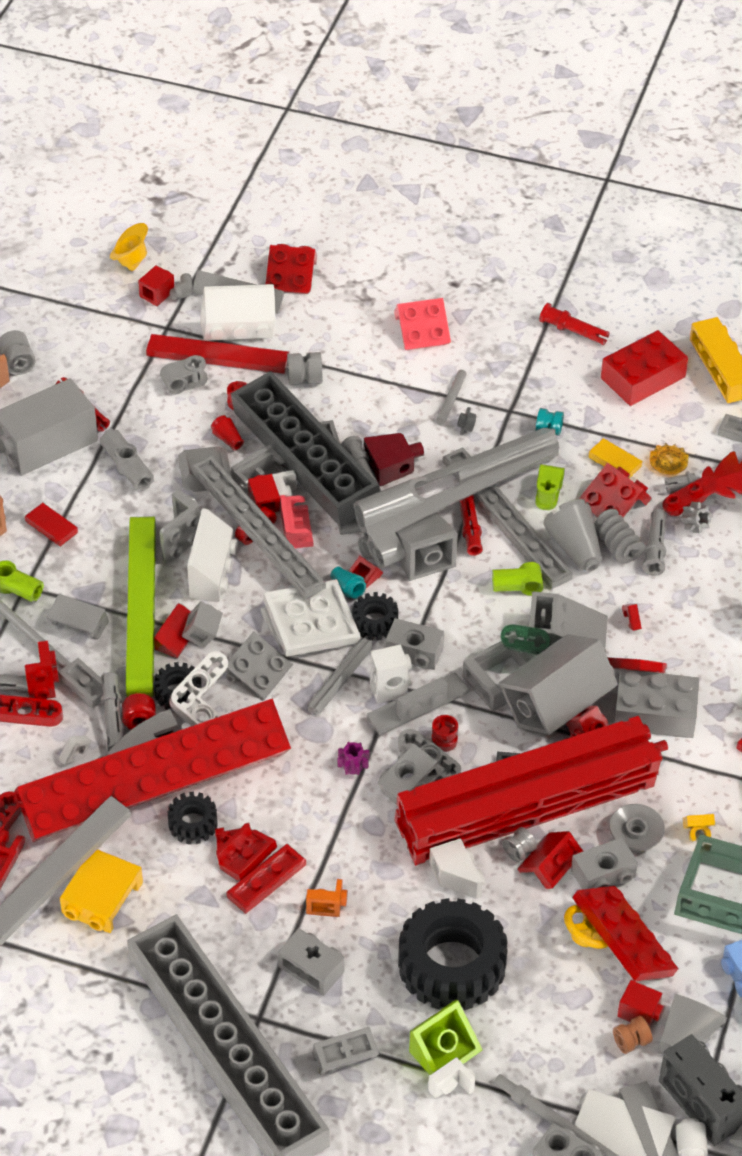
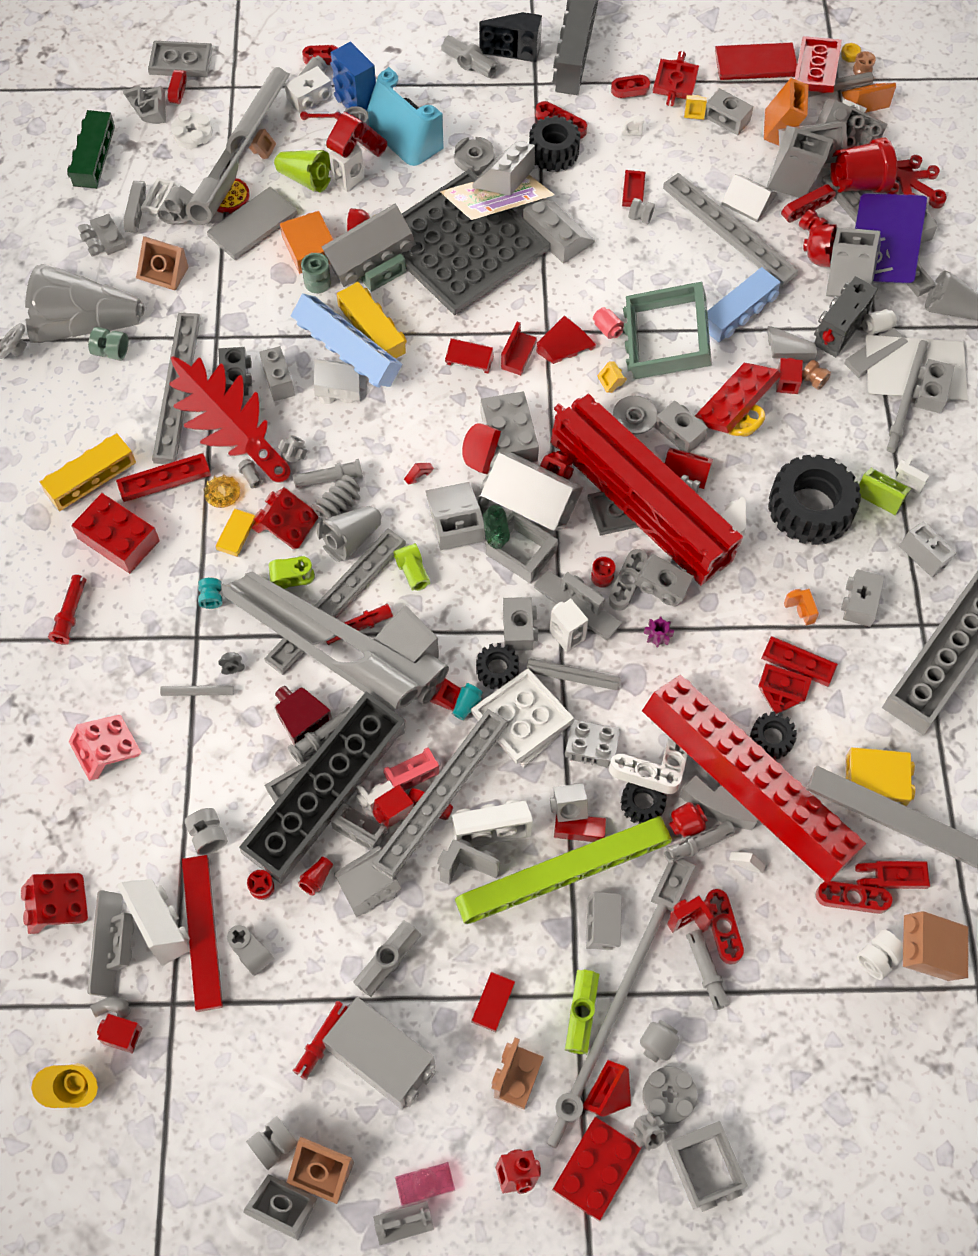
camera: 110 degrees left, 15 degrees up
(699, 417) = (163, 477): none -> red plate

